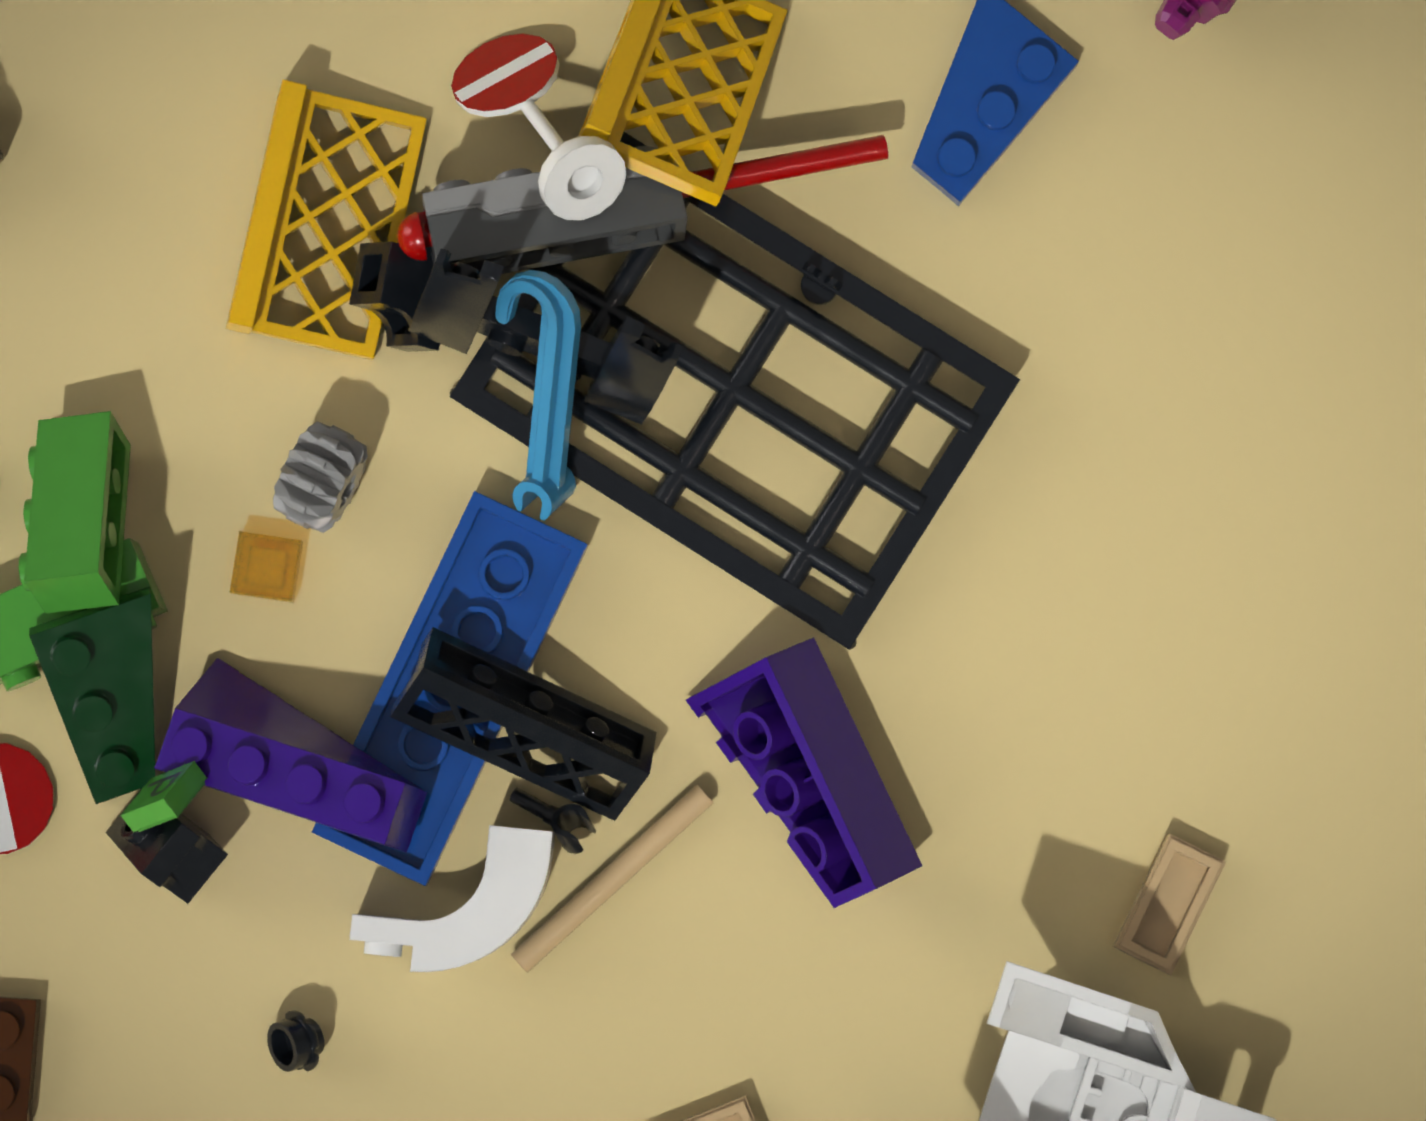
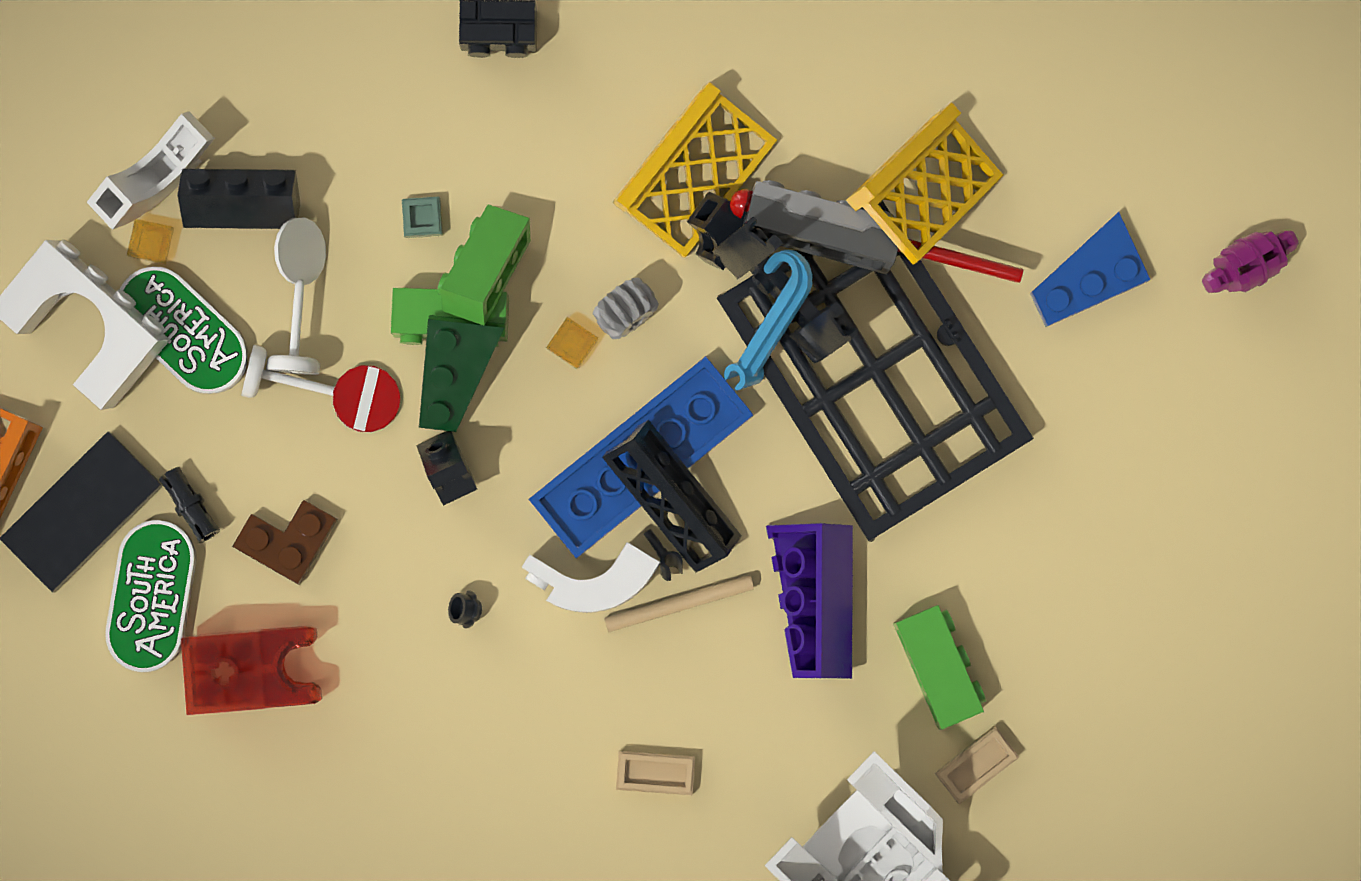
camera: 25 degrees right, 0 degrees up
(164, 797) = (459, 441): bright green tile -> none
(285, 760) = (525, 444): dark purple wedge -> none
(509, 76) = (834, 139): white piece -> none
(1045, 784) = (940, 666): none -> bright green brick

